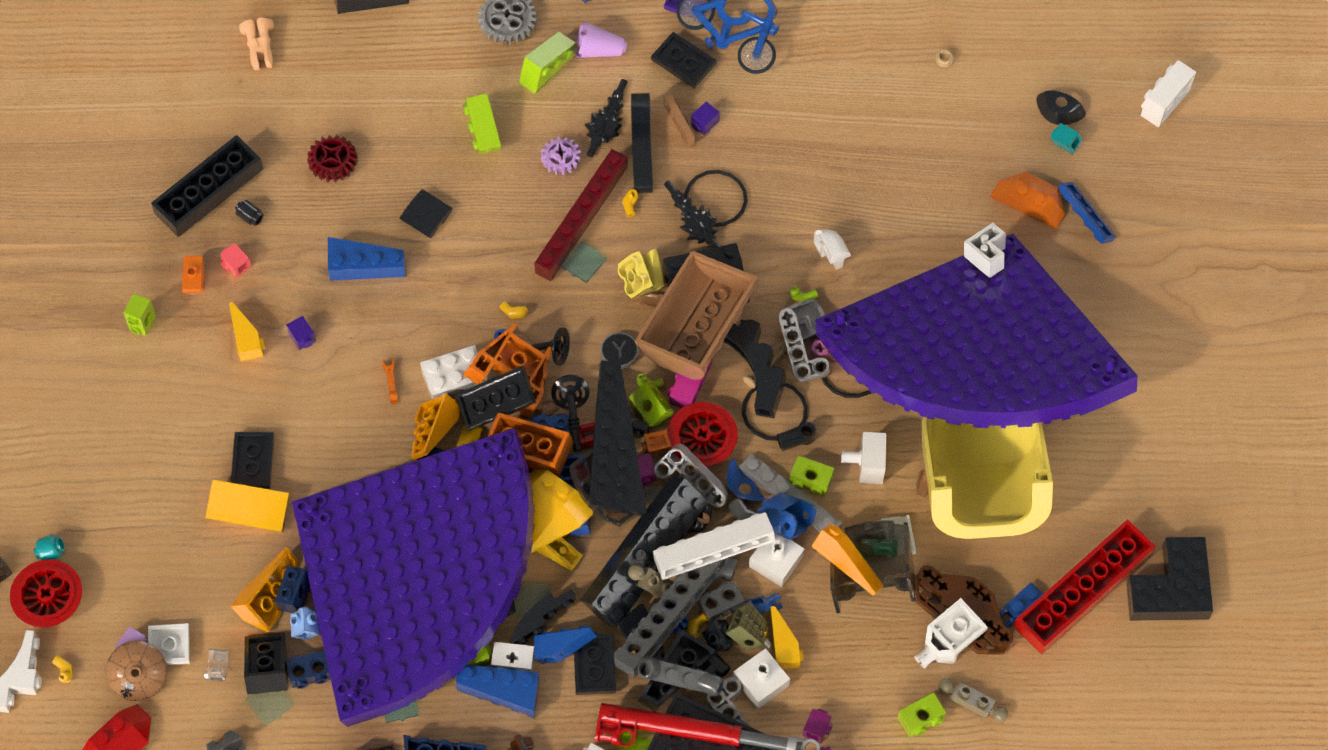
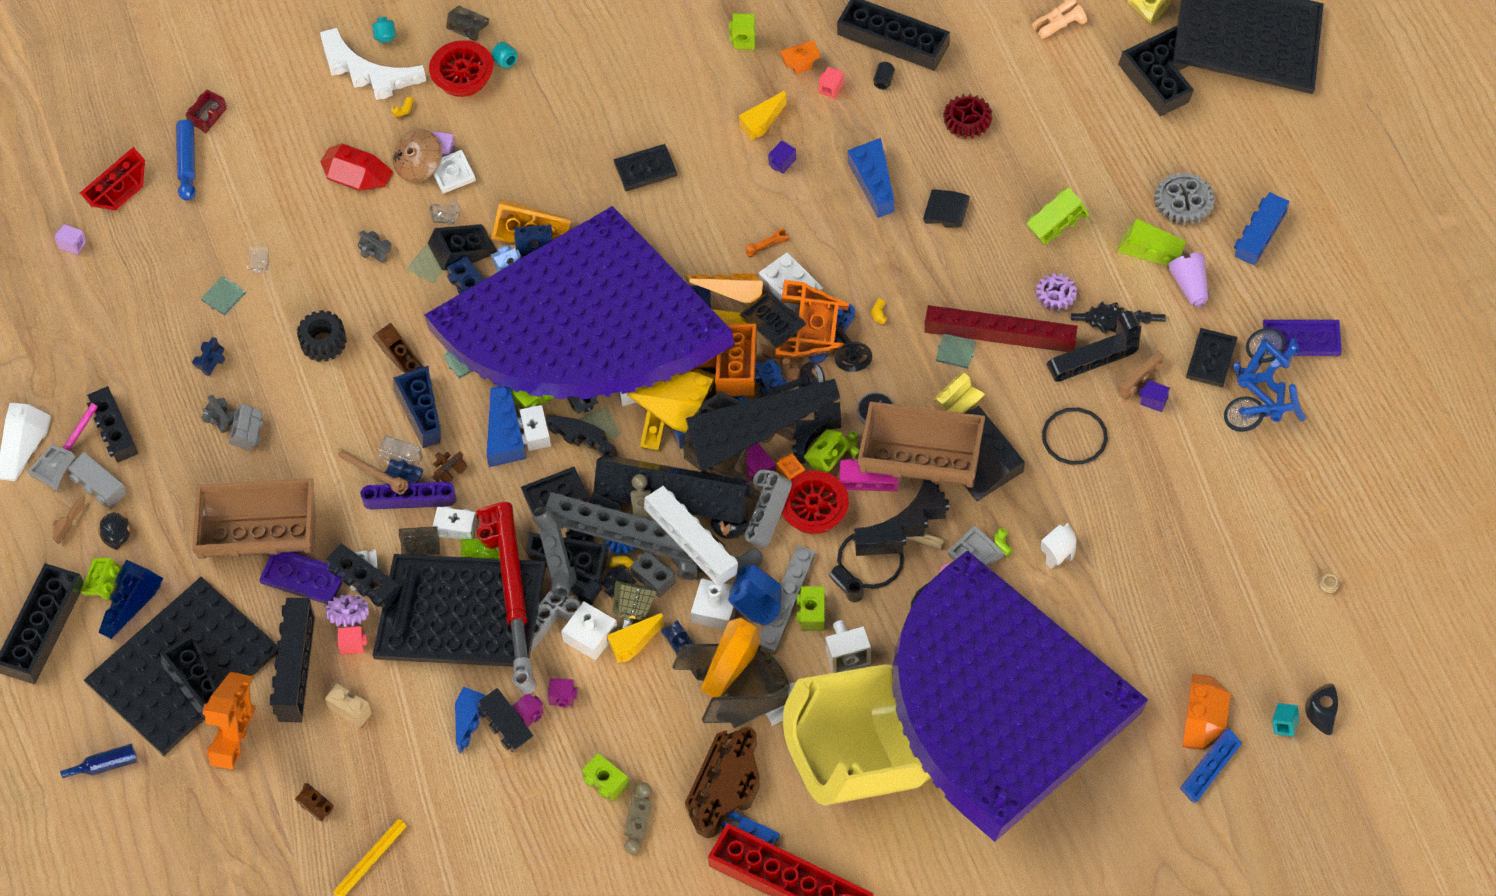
camera: 75 degrees right, 5 degrees down
(247, 505) = (600, 179): yellow tile -> none
(557, 646) = (558, 457): blue slope -> none
(629, 201) = (1035, 364): yellow arm -> none
(697, 222) = (1041, 427): black piece -> none
(736, 478) = (778, 545): blue piece -> none
(764, 604) = (663, 605): blue plate -> none
(798, 344) = (956, 534): light grey beam -> none
(802, 601) = (676, 636): none -> dark blue hips
(878, 548) = (755, 682): clear green connector -> none
(950, 634) = (690, 771): white plate -> none
(986, 249) = (1105, 666): white brick -> none
(1167, 93) = (1385, 798): white brick -> none

